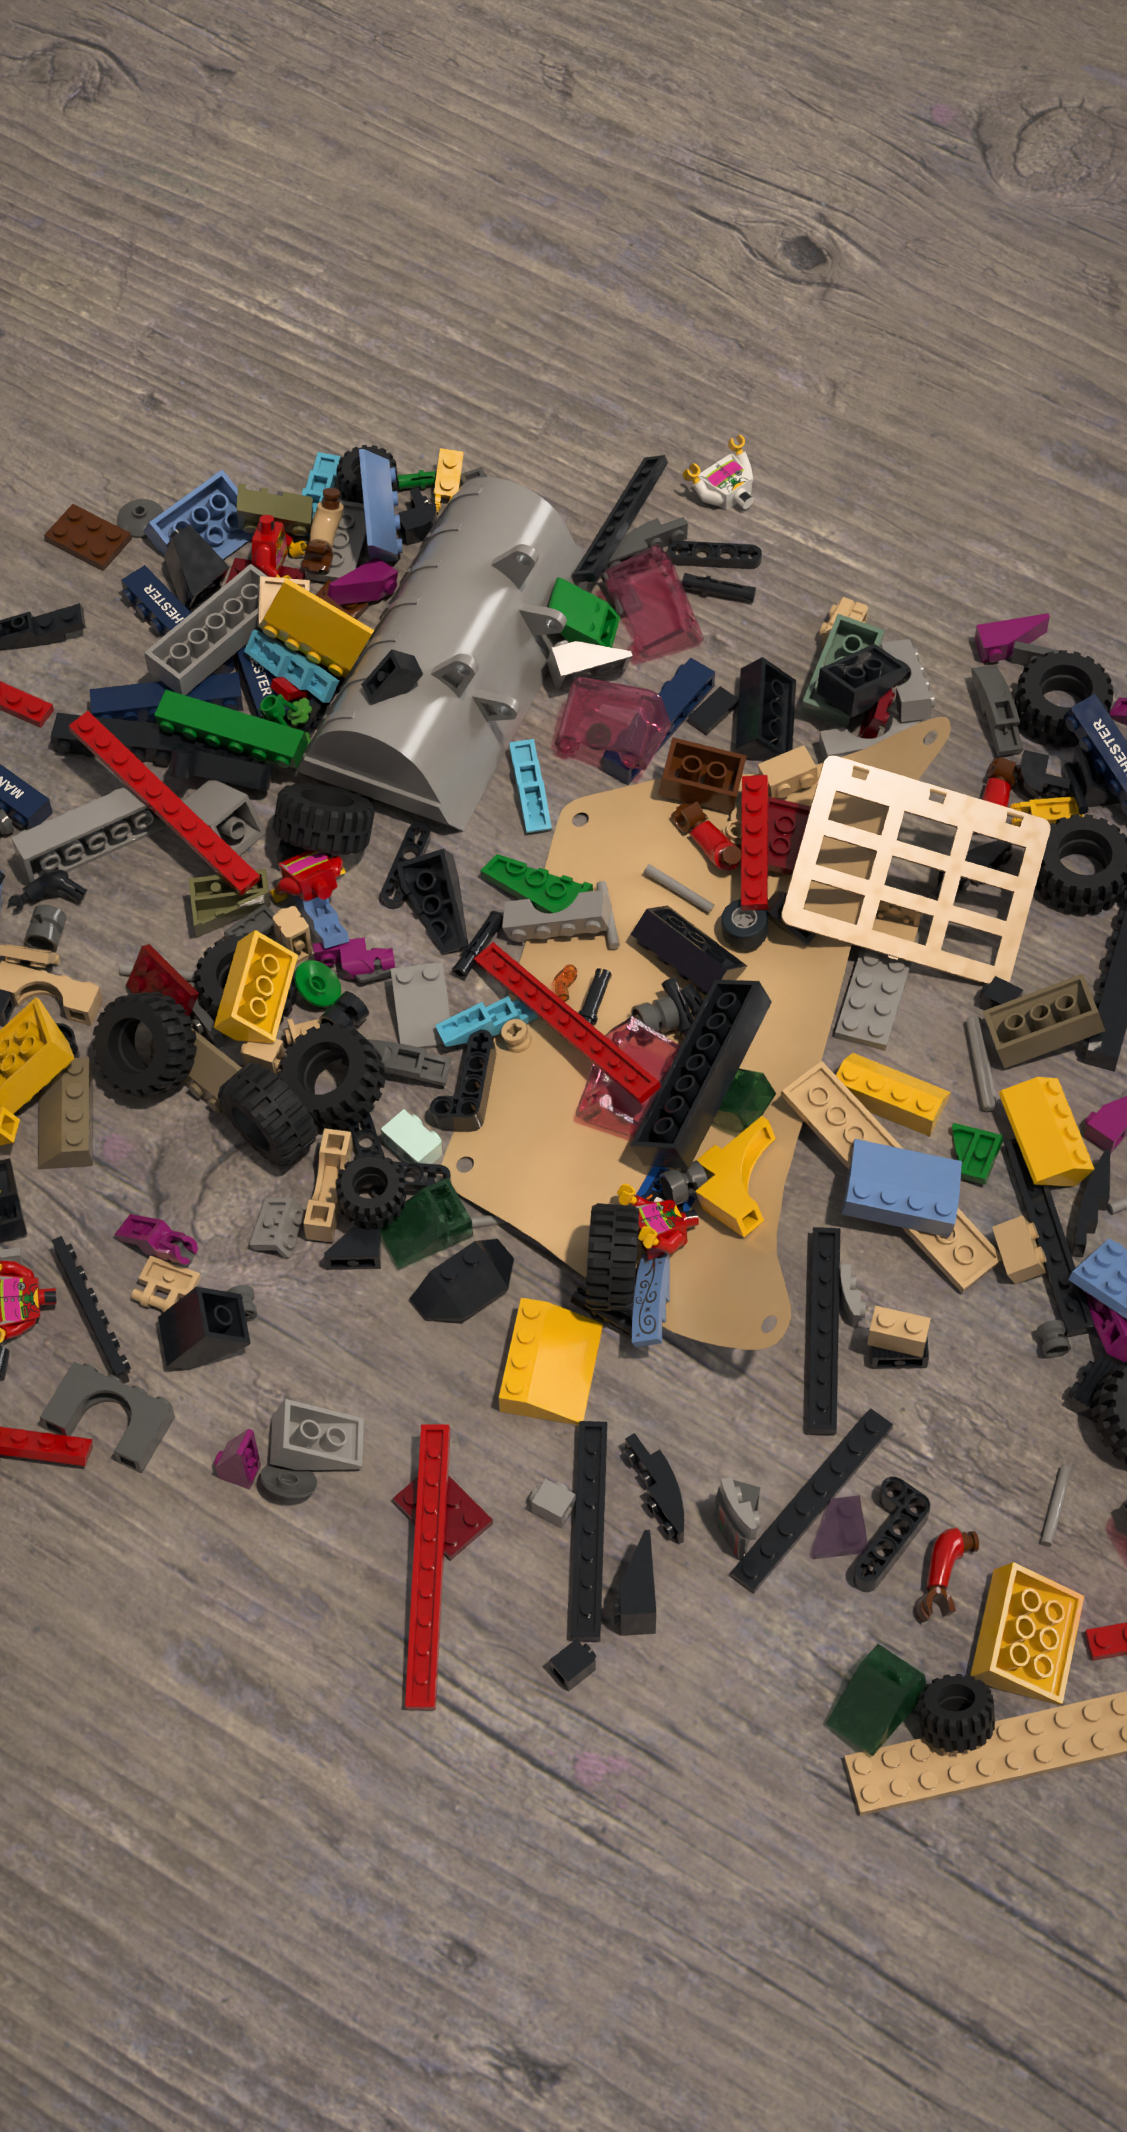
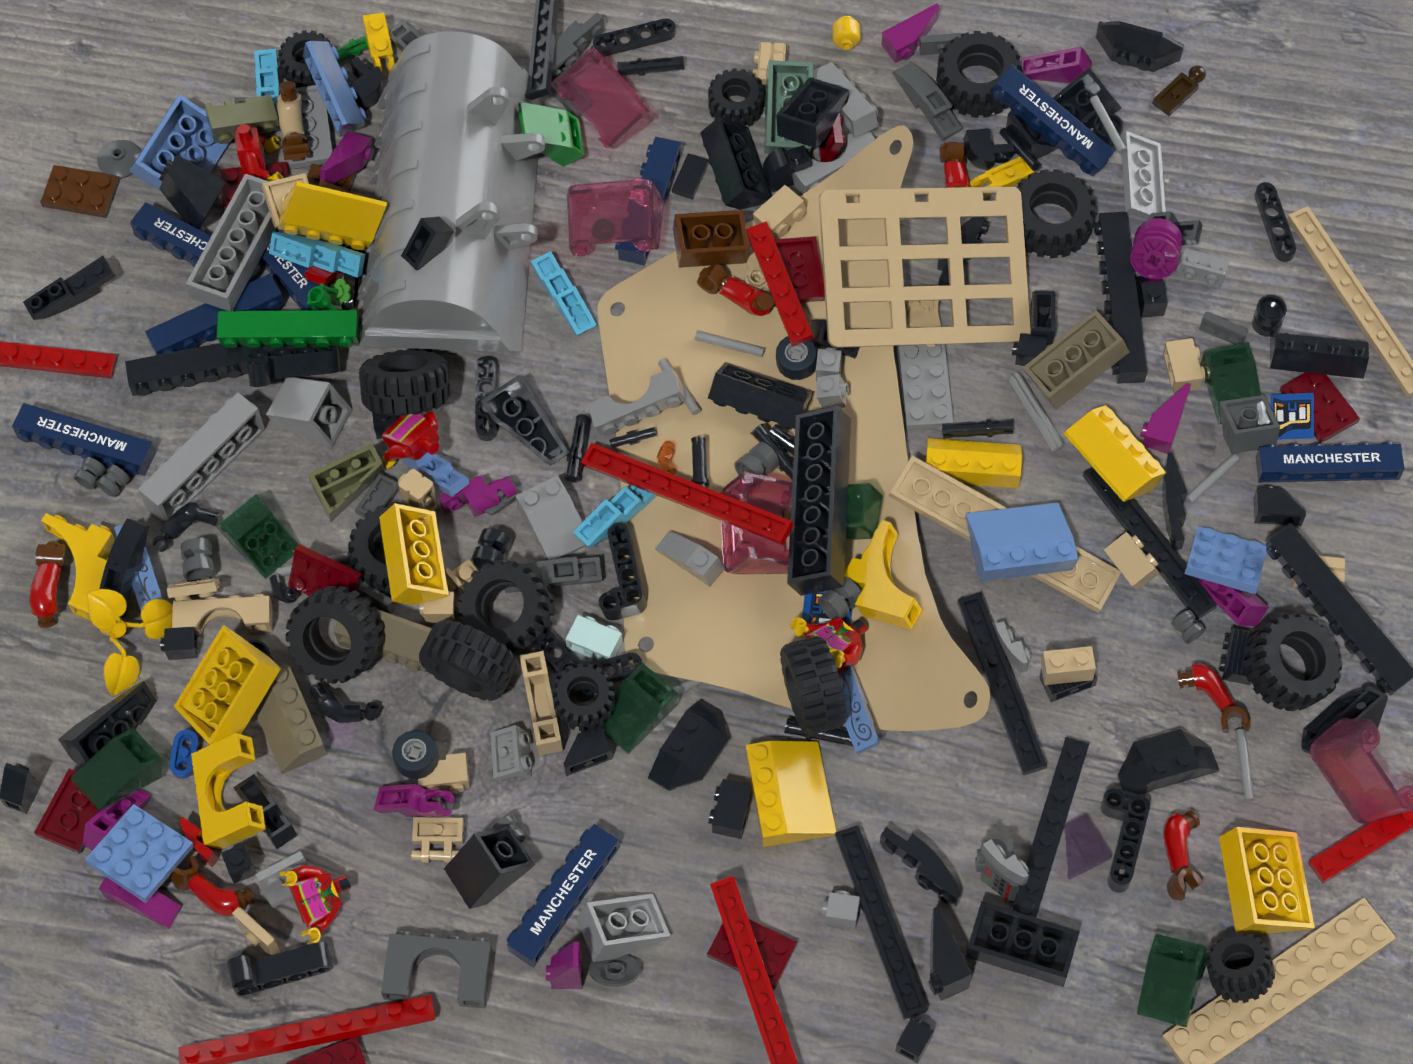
camera: 20 degrees left, 5 degrees up
(87, 1300) = (375, 875): black plate -> none
(114, 986) = (280, 592): none -> black arm
(115, 925) = (258, 536): none -> clear green slope
(122, 1126) = (341, 712): none -> black arm
(164, 803) = (260, 413): red plate -> none
(175, 1191) = (412, 745): none -> black wheel
(204, 1225) = (448, 775): none -> tan brick
(269, 1386) = (563, 895): none -> dark blue brick
(317, 983) = (456, 529): green dish -> none
(481, 1359) = (731, 808): none -> black brick
(521, 1040) = (648, 522): tan wheel -> none
(539, 951) = (633, 437): none -> black bar
(545, 891) = (621, 383): green wing -> none
(546, 1090) = (691, 557): none -> light grey slope
(584, 660) = (564, 169): slope -> none
(730, 1605) = (1022, 944): none -> black brick
(767, 969) = (832, 391): none -> light grey brick
(774, 943) = (828, 362): none -> light grey brick
(797, 631) = (736, 84): none -> black tyre
(810, 726) = (780, 165): none -> black brick
(915, 1061) = (982, 428): none -> black pin
(939, 615) = (845, 32): none -> yellow head
(969, 1472) = (1165, 762): none -> black wedge
(977, 1151) = (1062, 487): green wing -> none
(1029, 964) = (1043, 315): none -> black brick
(1051, 1403) = (1209, 682): none -> piece

